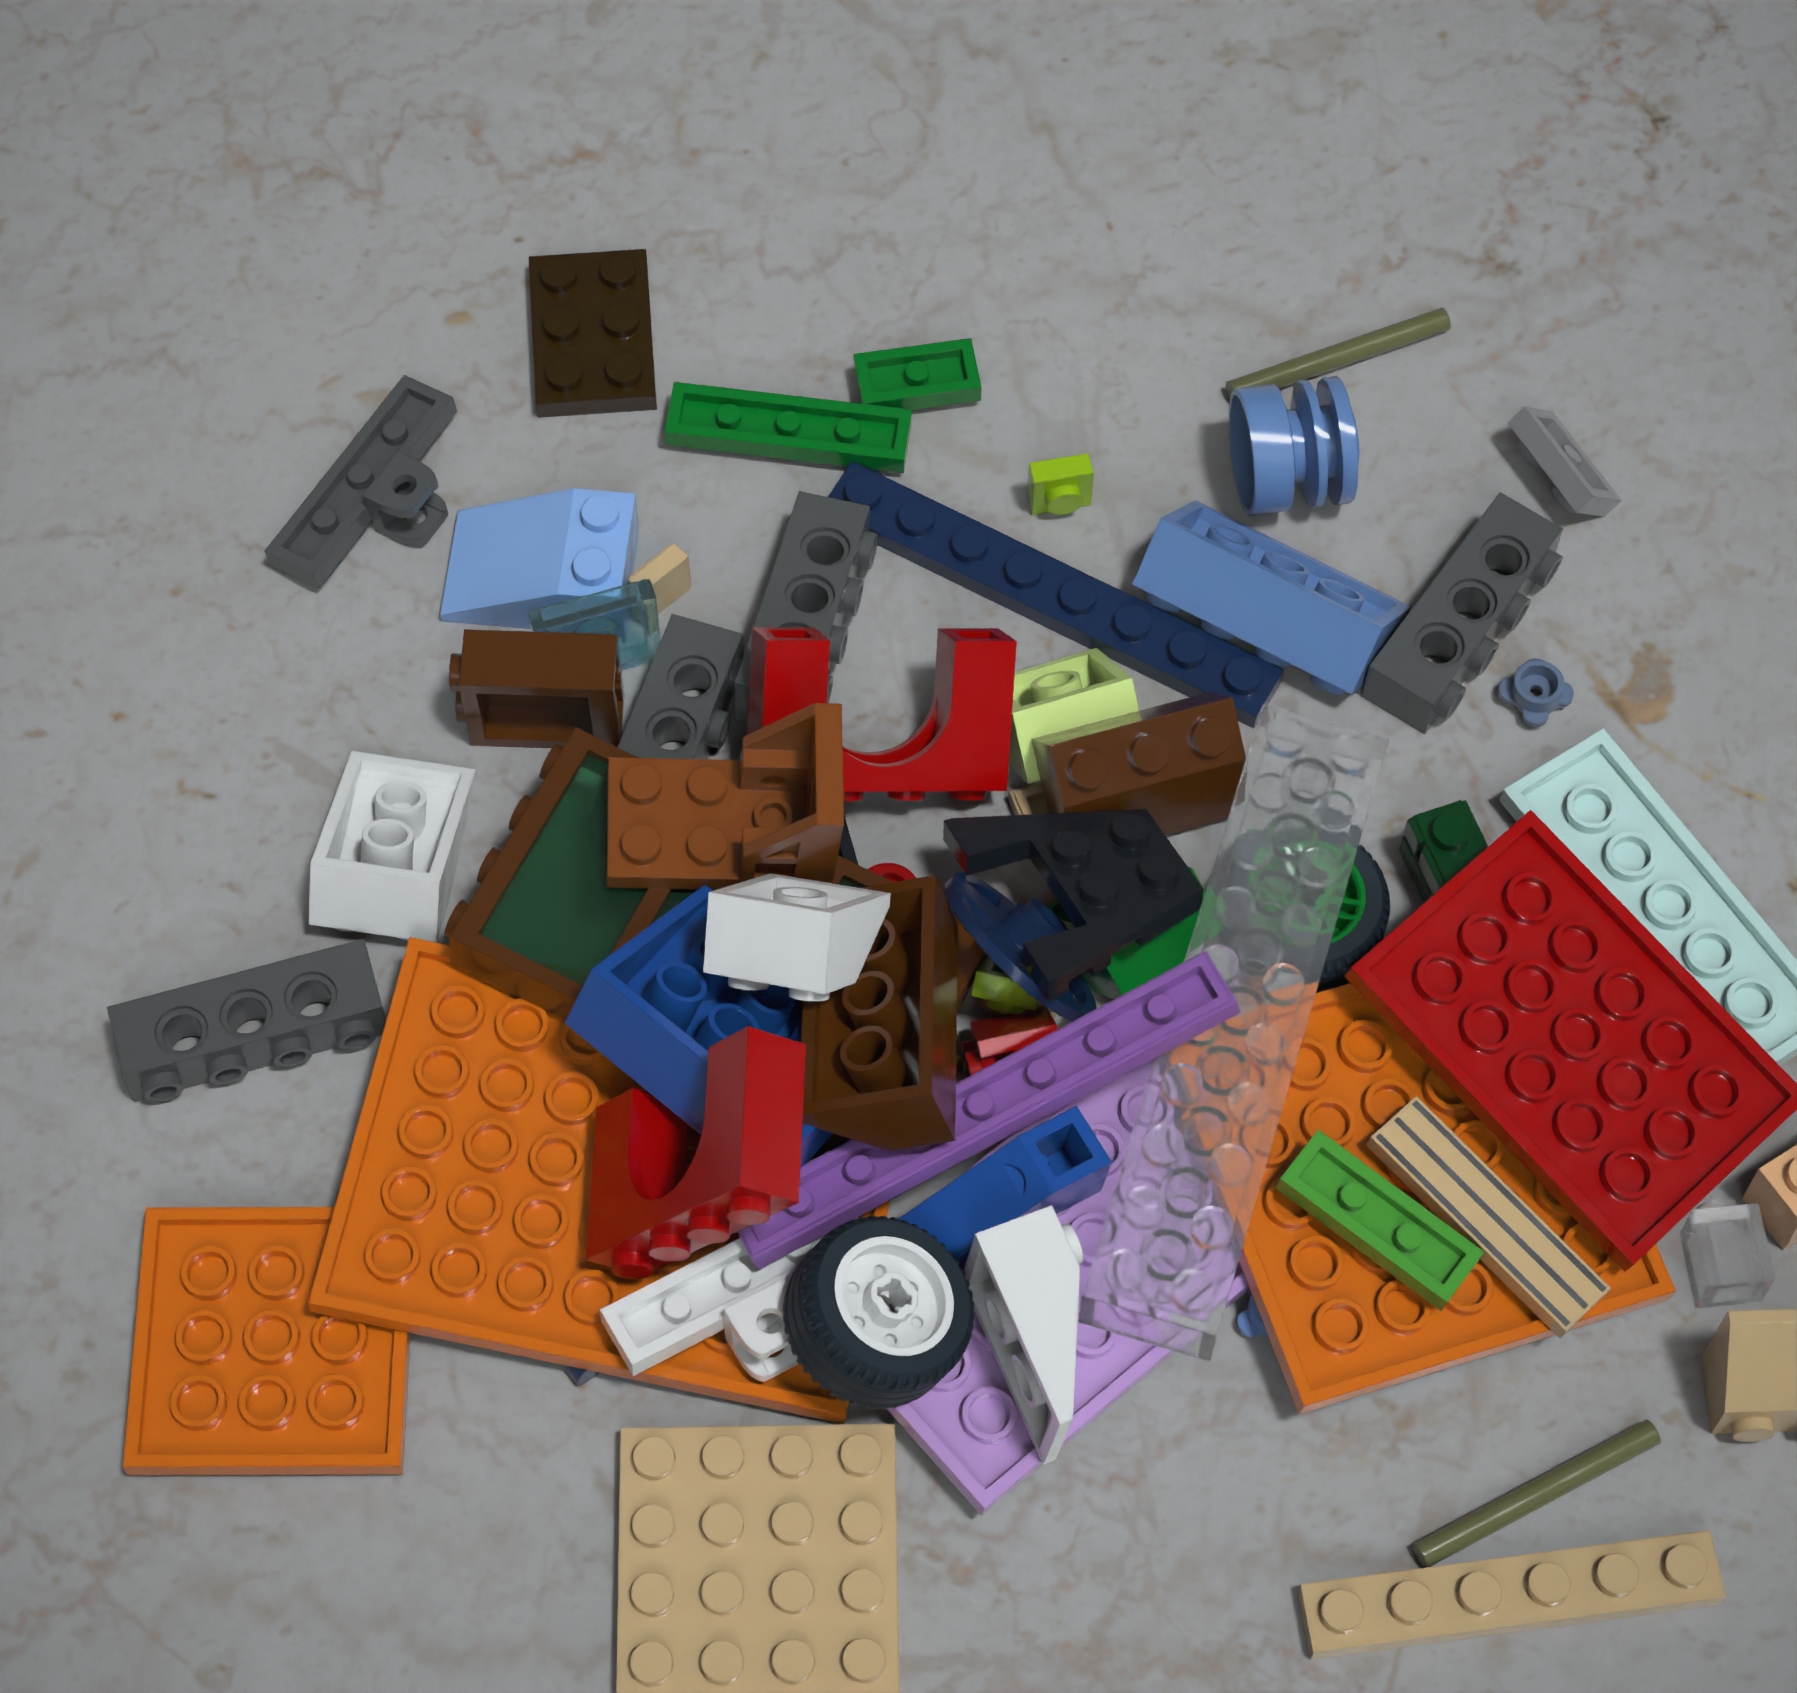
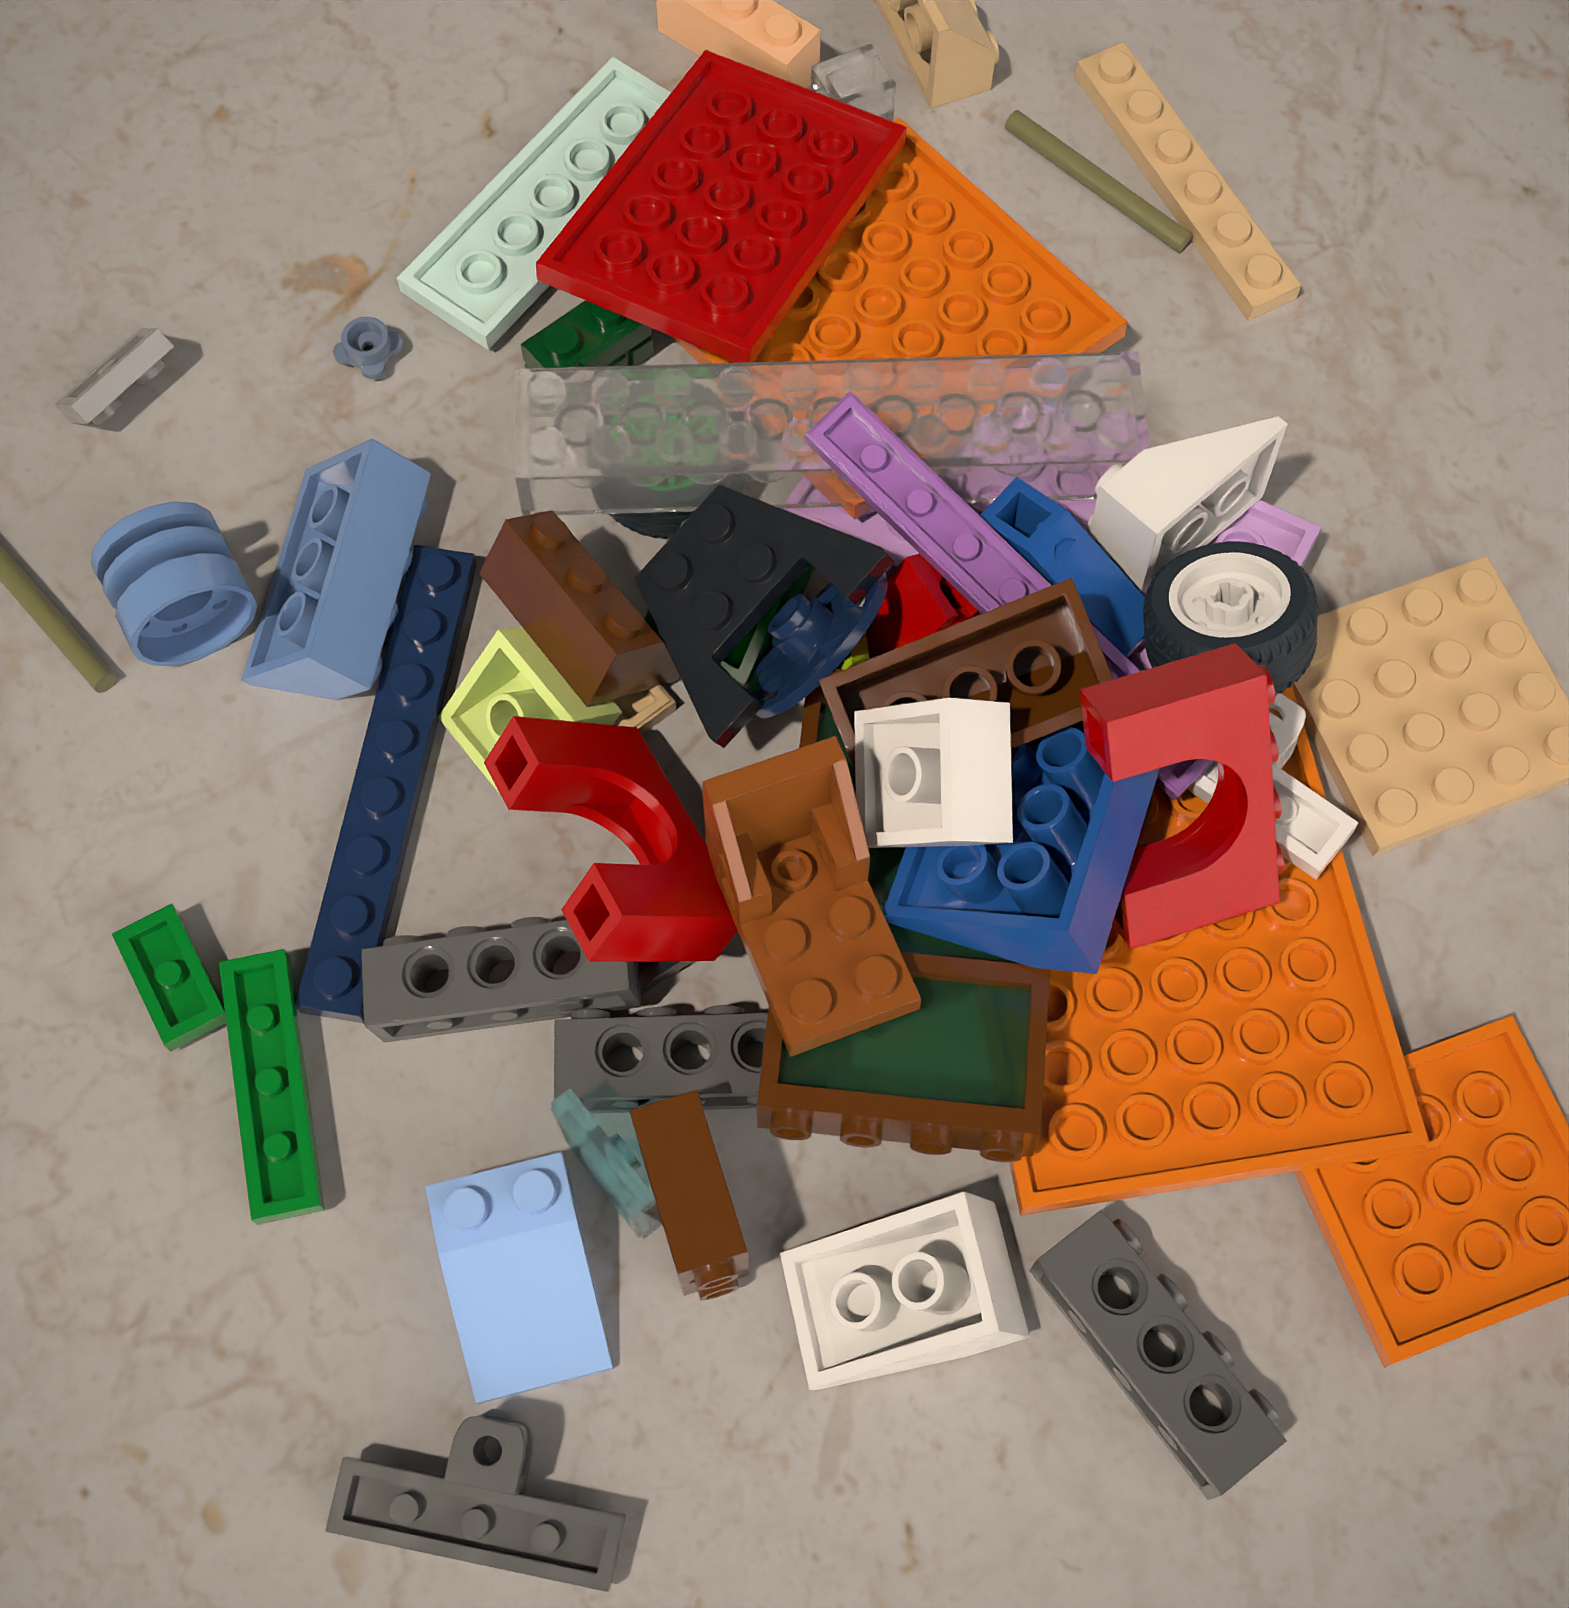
camera: 110 degrees left, 5 degrees up
(592, 333) = (196, 1349): dark brown plate -> none
(668, 575) = (504, 1139): tan tile -> none
(1060, 484) = (271, 793): lime plate -> none
(1379, 1220) = (954, 291): bright green plate -> none
(1489, 1215) = (904, 239): tan tile -> none
(1502, 539) = (219, 407): dark grey brick -> none

